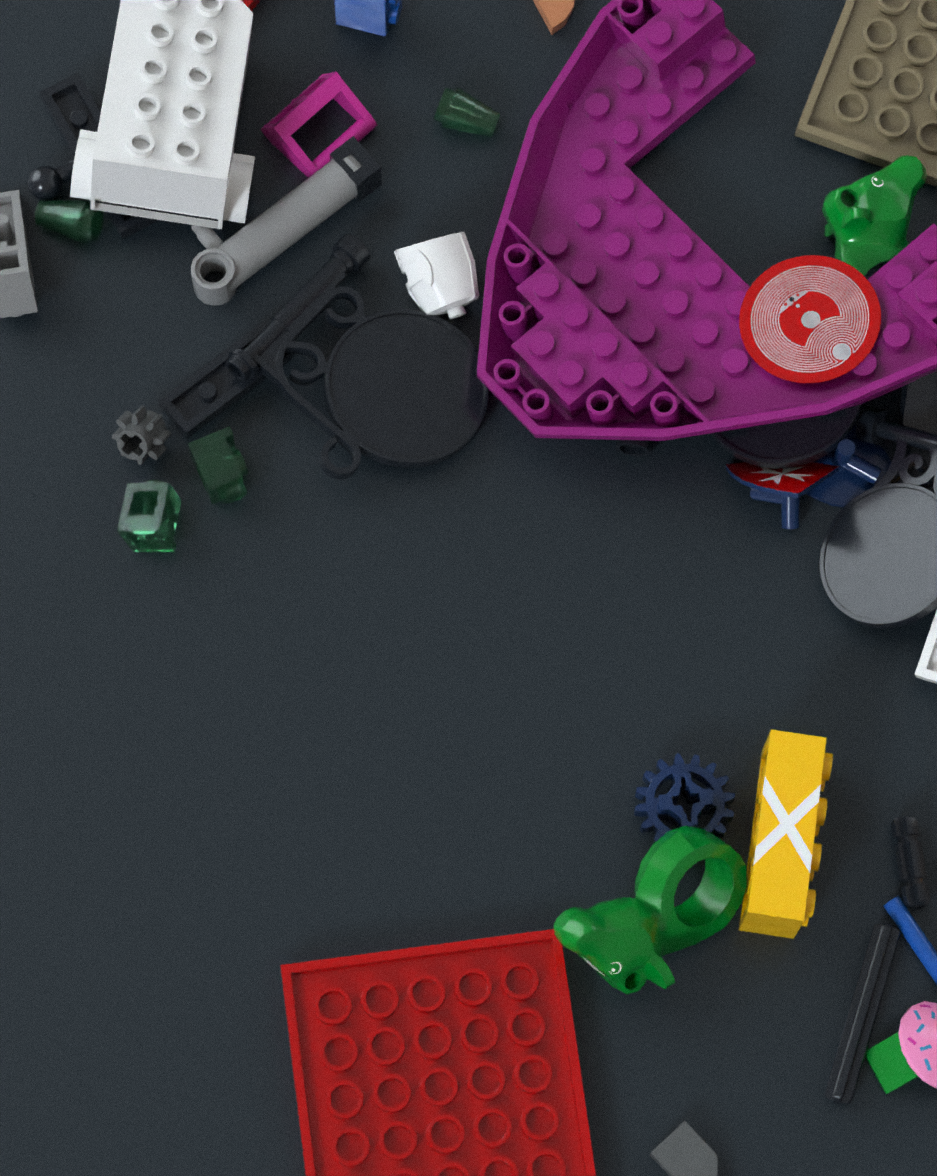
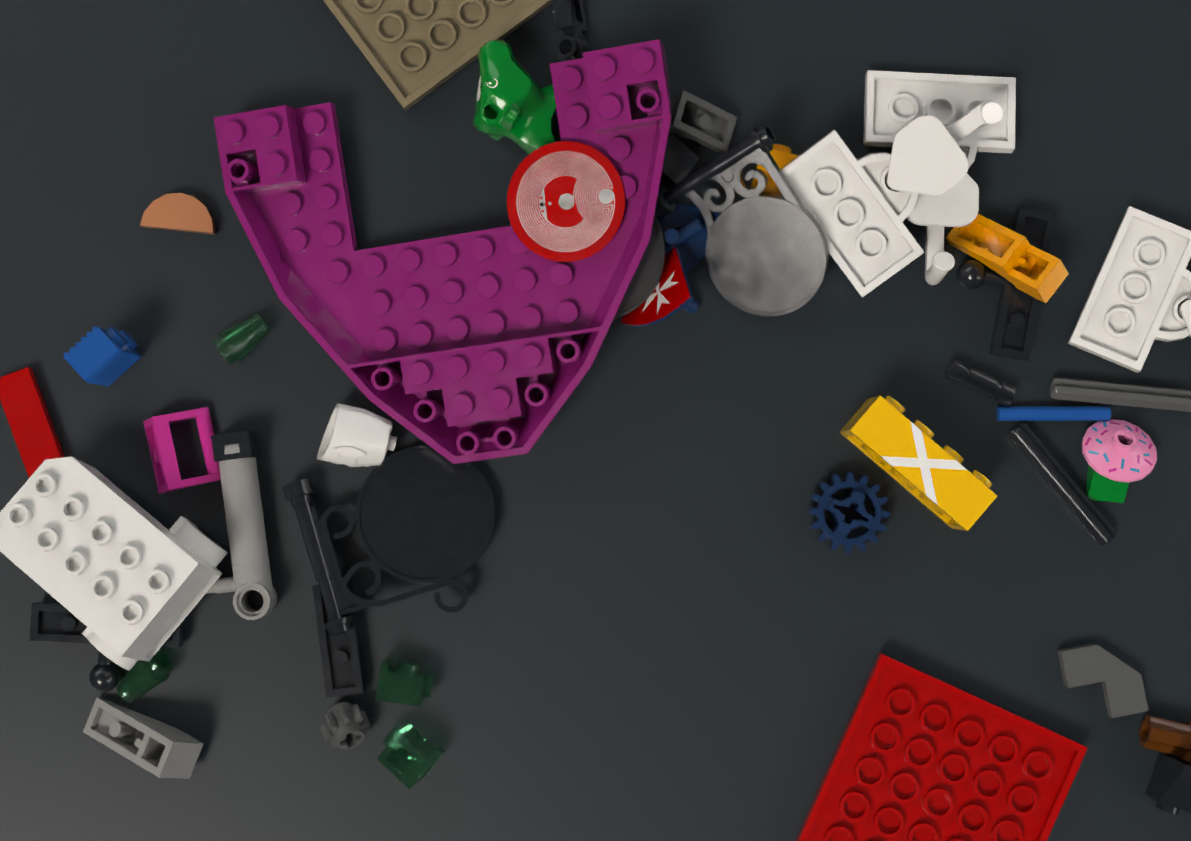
camera: 50 degrees left, 15 degrees up
(631, 935) = (917, 564): green animal -> none

